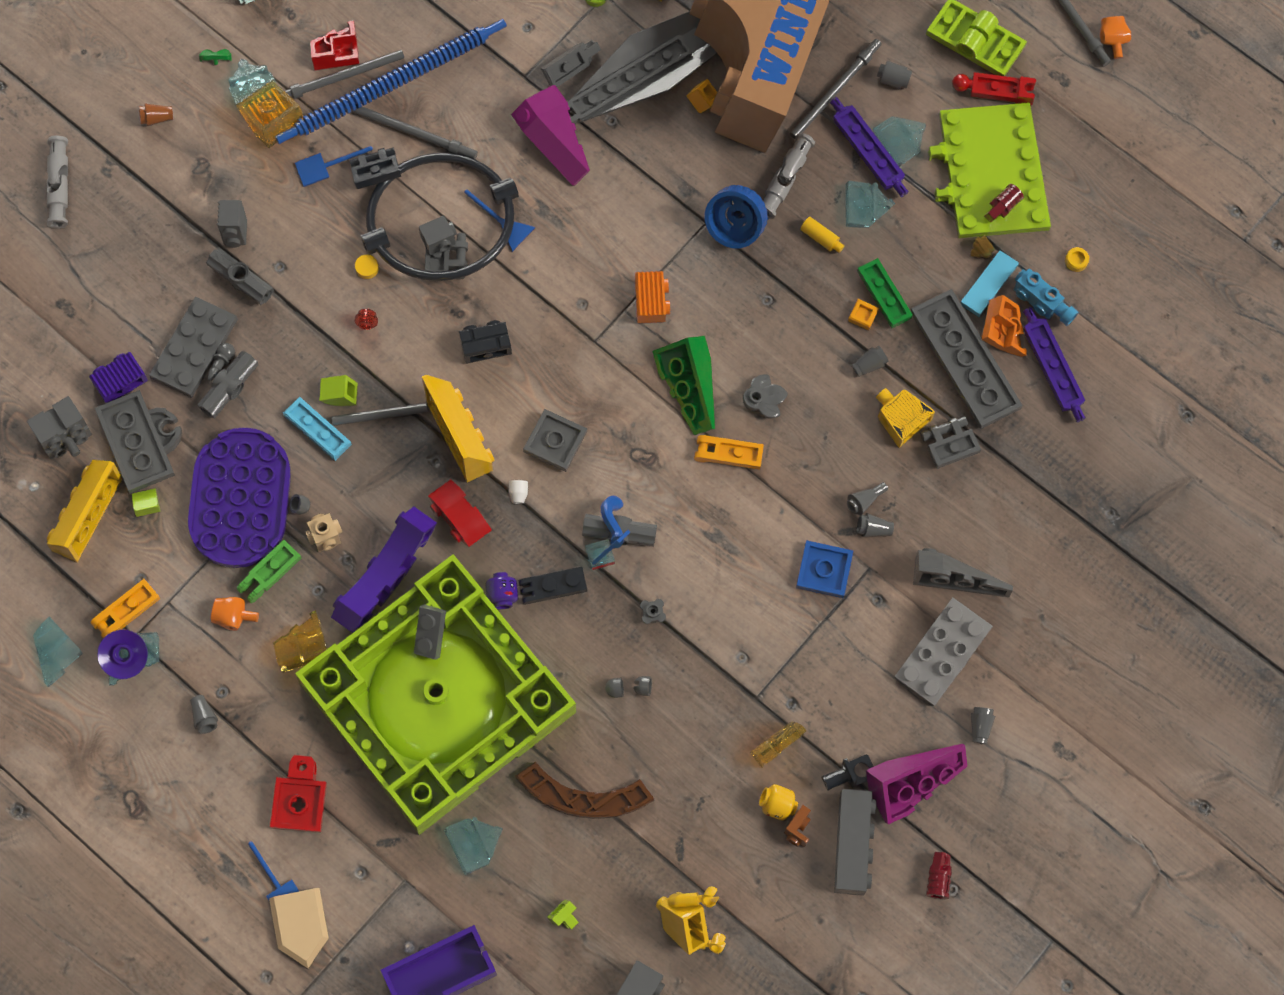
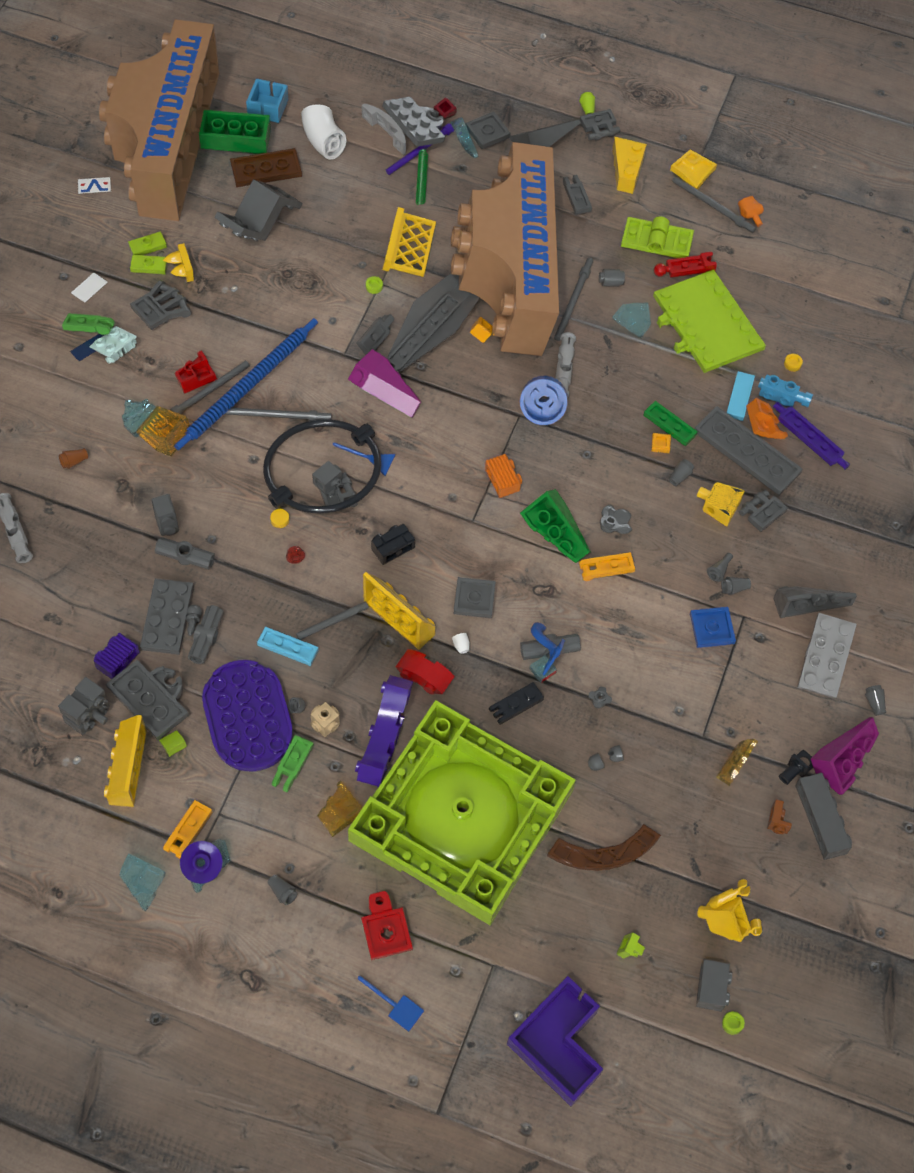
camera: 20 degrees left, 10 degrees down
(223, 54) = (108, 402): green piece -> none
(231, 612) = (274, 805): orange piece -> none
(300, 924) = (424, 1028): tan tile -> none
(314, 169) = (211, 462): blue piece -> none
(338, 391) = (294, 613): lime brick -> none
(375, 168) = (259, 446): black plate -> none
(429, 632) = (440, 764): dark grey plate -> none
(473, 843) = (536, 916): clear light blue slope -> none
(502, 590) = (481, 717): dark purple head -> none
(778, 802) = (755, 805): yellow head -> none
(822, 235) = (608, 397): yellow cylinder -> none
(865, 204) = (628, 368): clear light blue slope -> none
(868, 147) = (615, 330): dark purple plate -> none
(939, 876) = (897, 820): dark red hinge -> none
(982, 248) = (725, 372): pearl gold plate -> none
(1004, 202) = (728, 337): dark red hinge -> none

